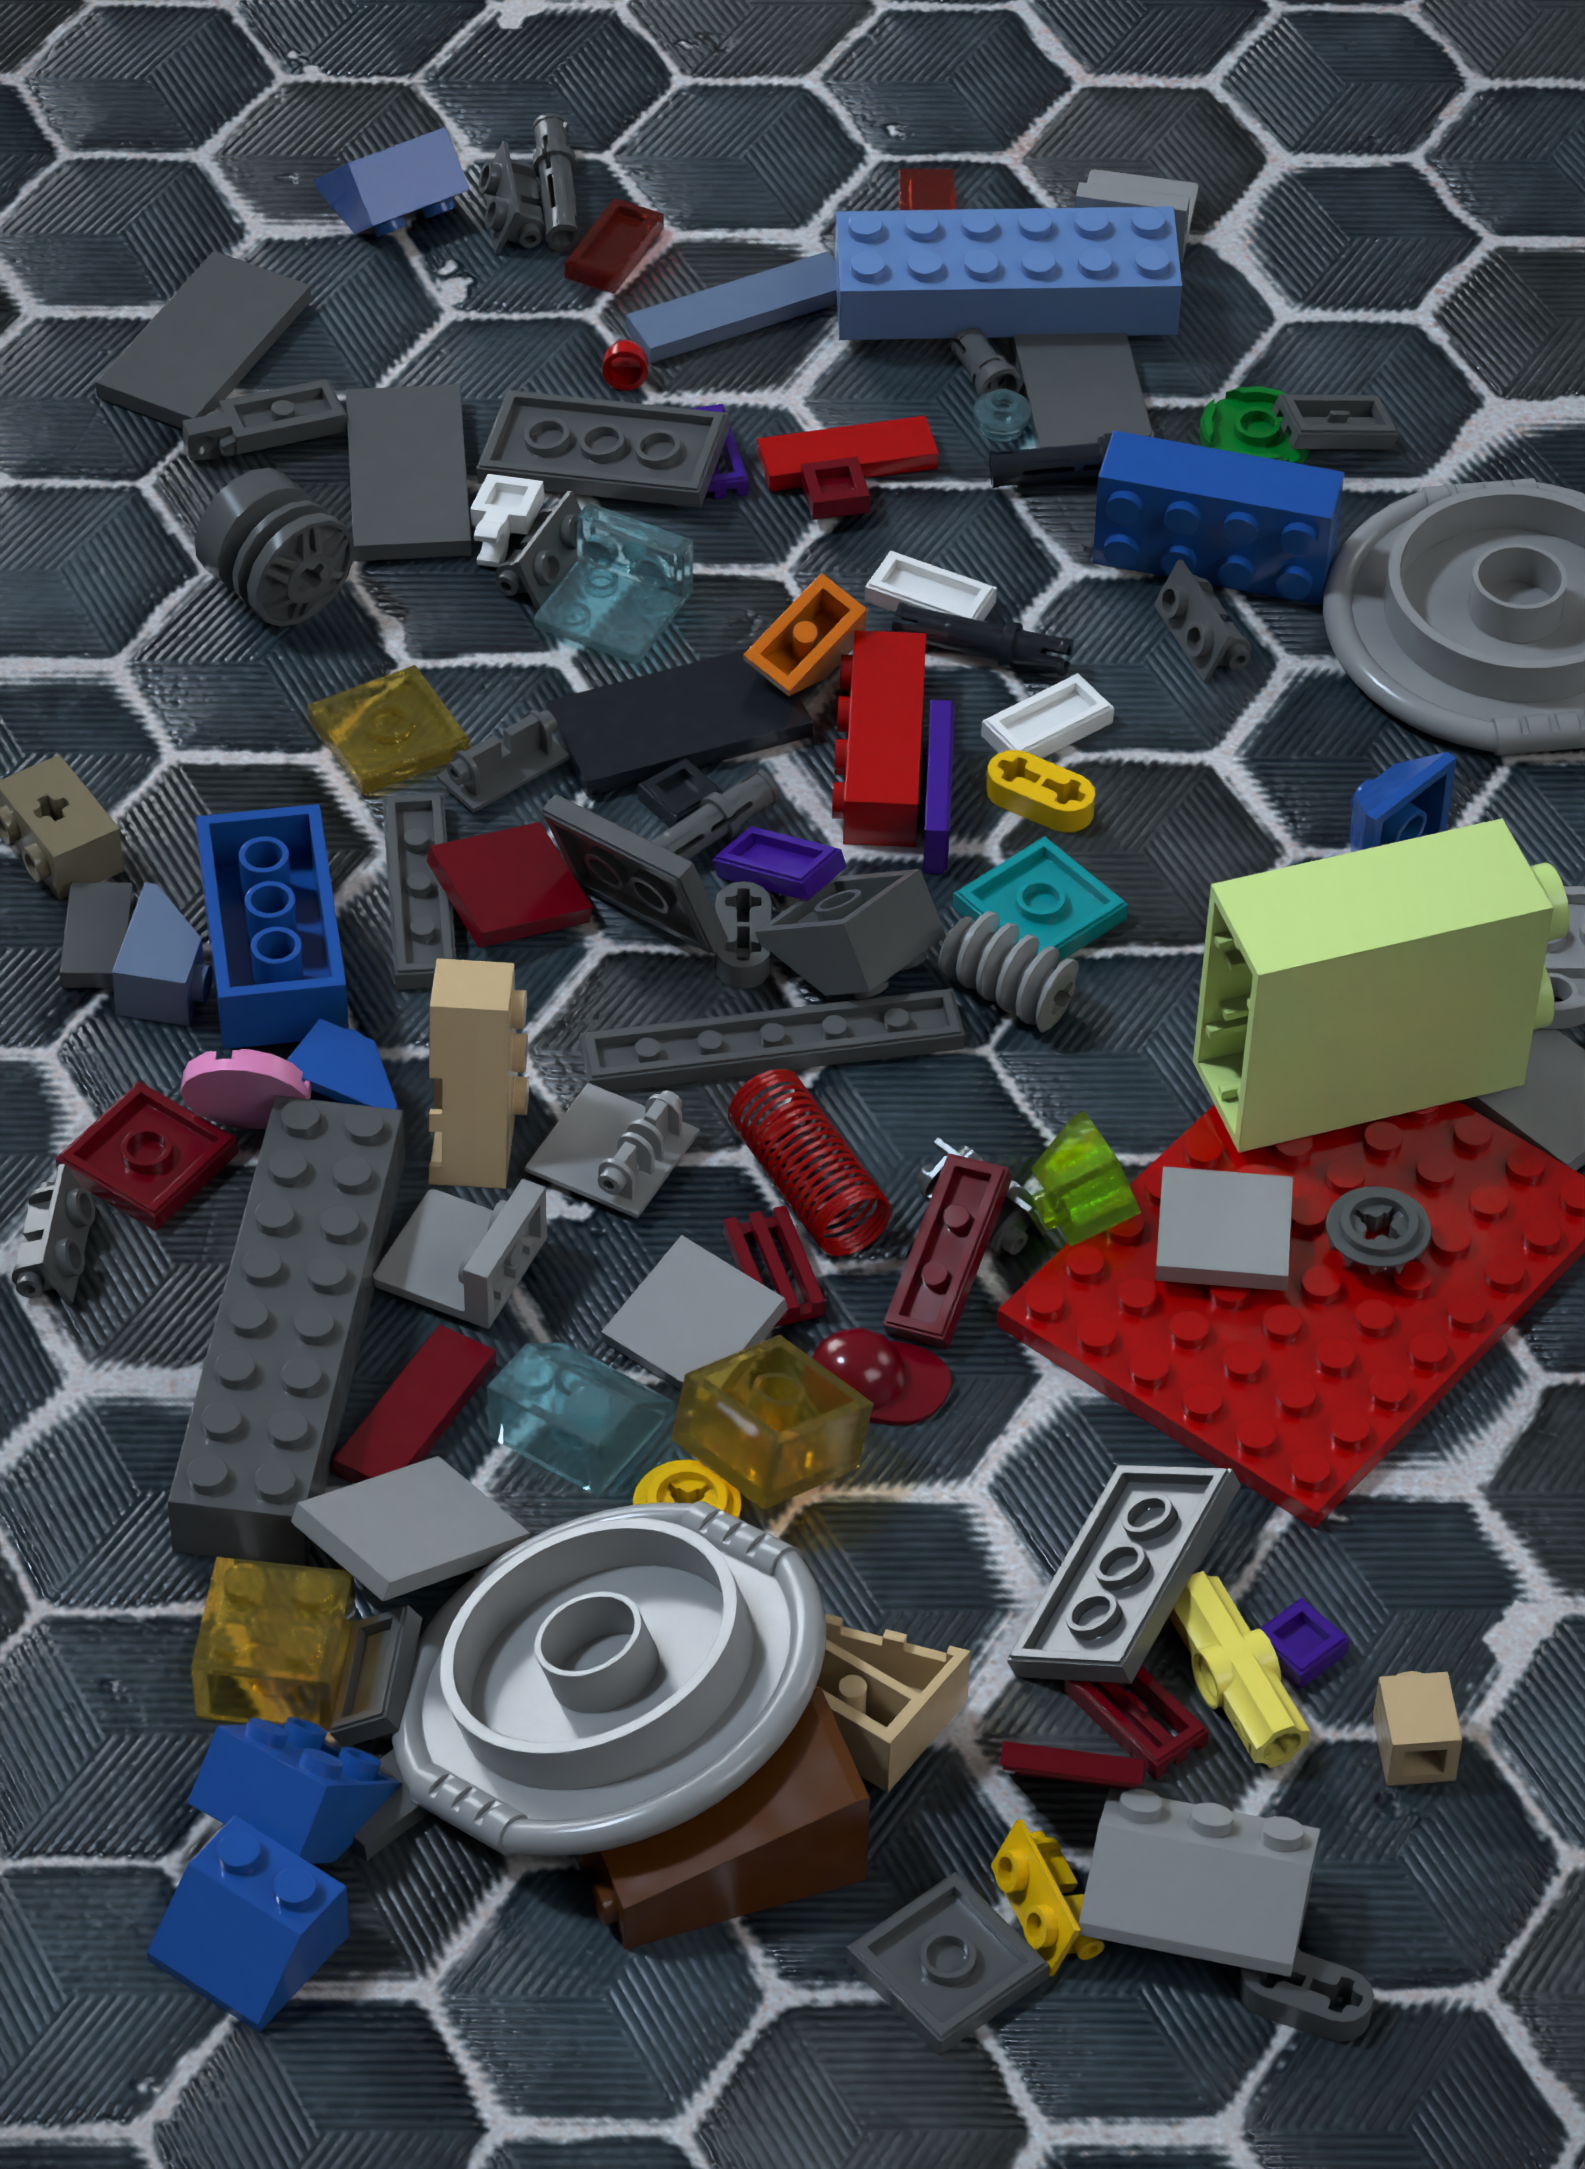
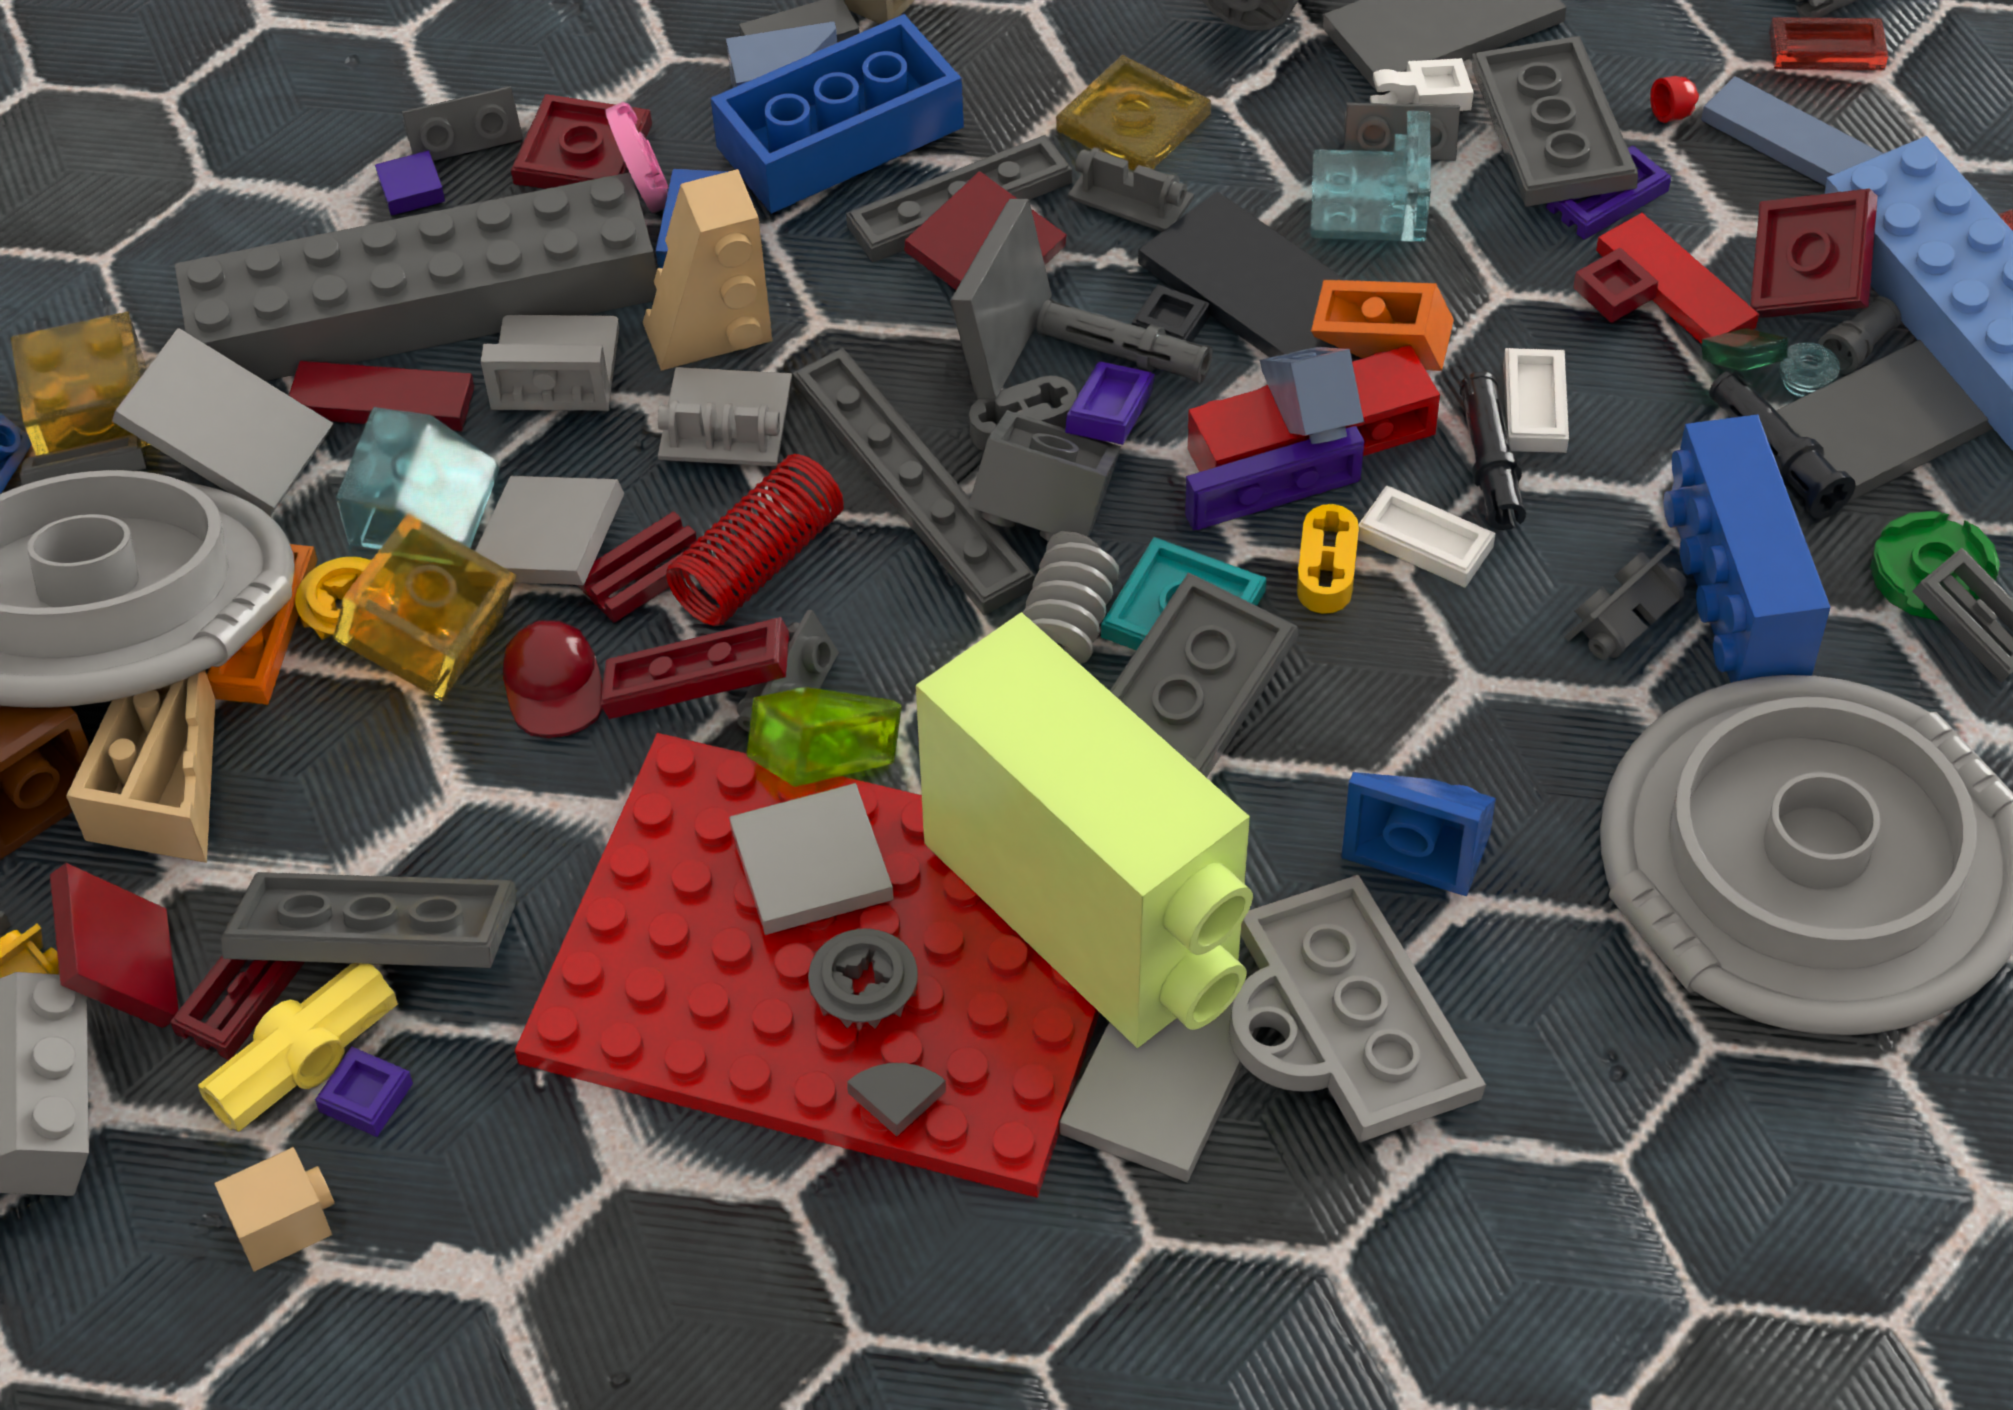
camera: 70 degrees right, 5 degrees up
(110, 1308) = (410, 183): none -> dark purple tile
(895, 697) = (1315, 391): none -> sand blue slope
(905, 343) = (1814, 253): none -> dark red tile
(966, 438) = (1744, 349): none -> clear green tile
(1132, 915) = (1203, 669): none -> dark grey tile
(1507, 1248) = (896, 1092): none -> dark grey tile

